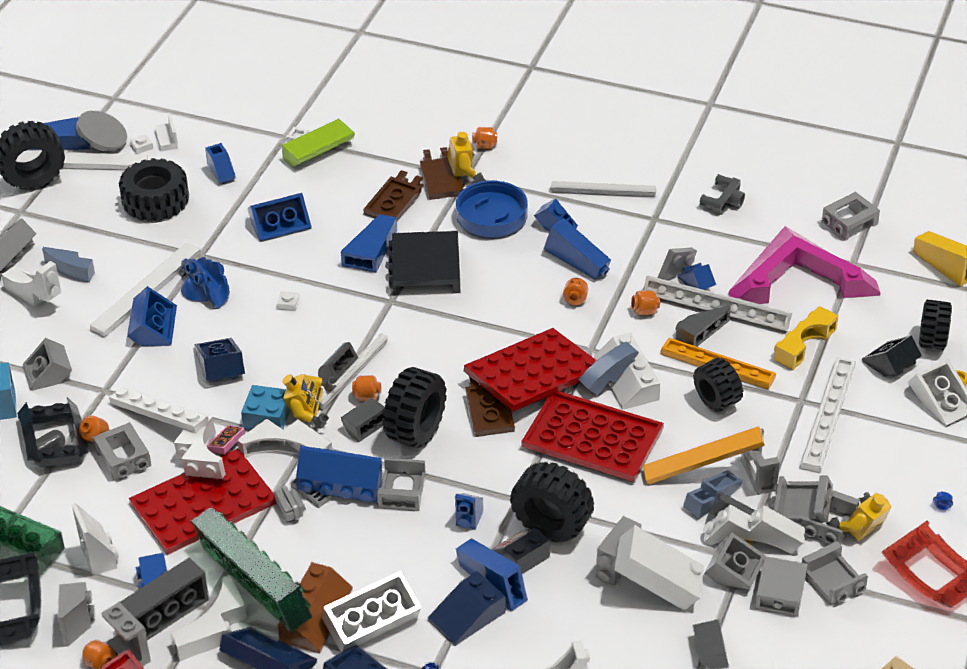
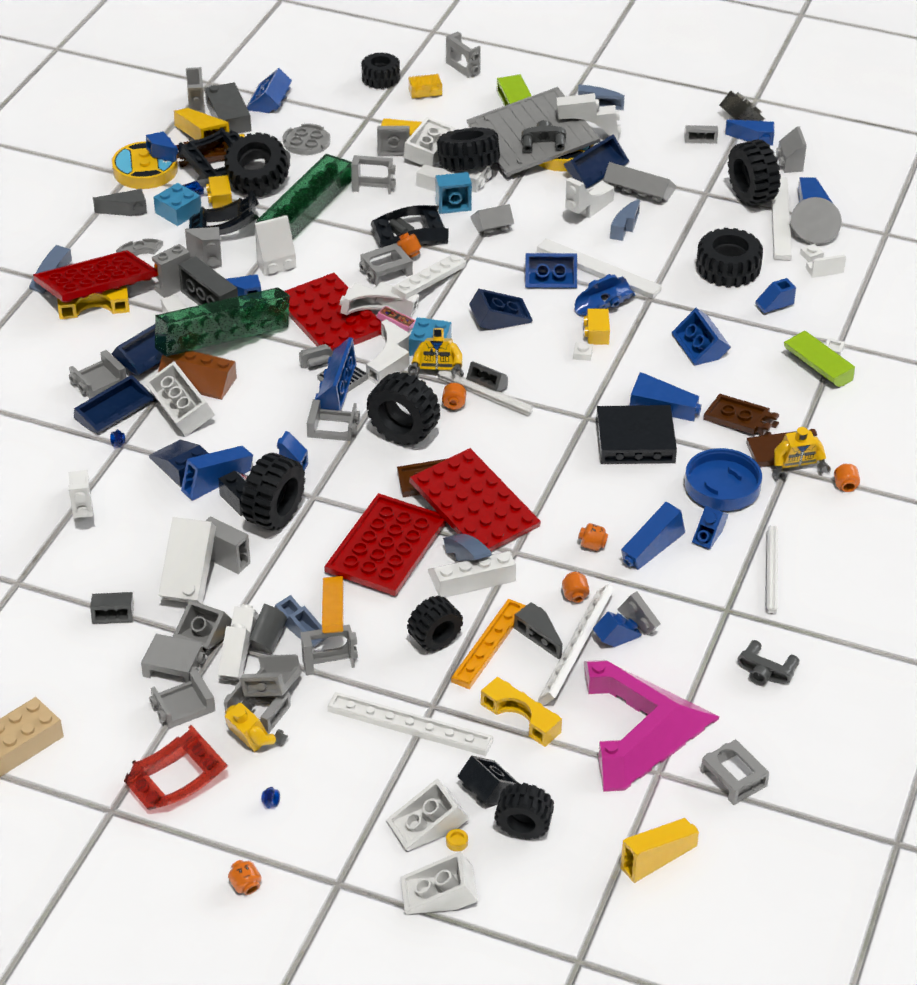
camera: 90 degrees right, 0 degrees up
(253, 285) = (597, 326): none -> yellow brick

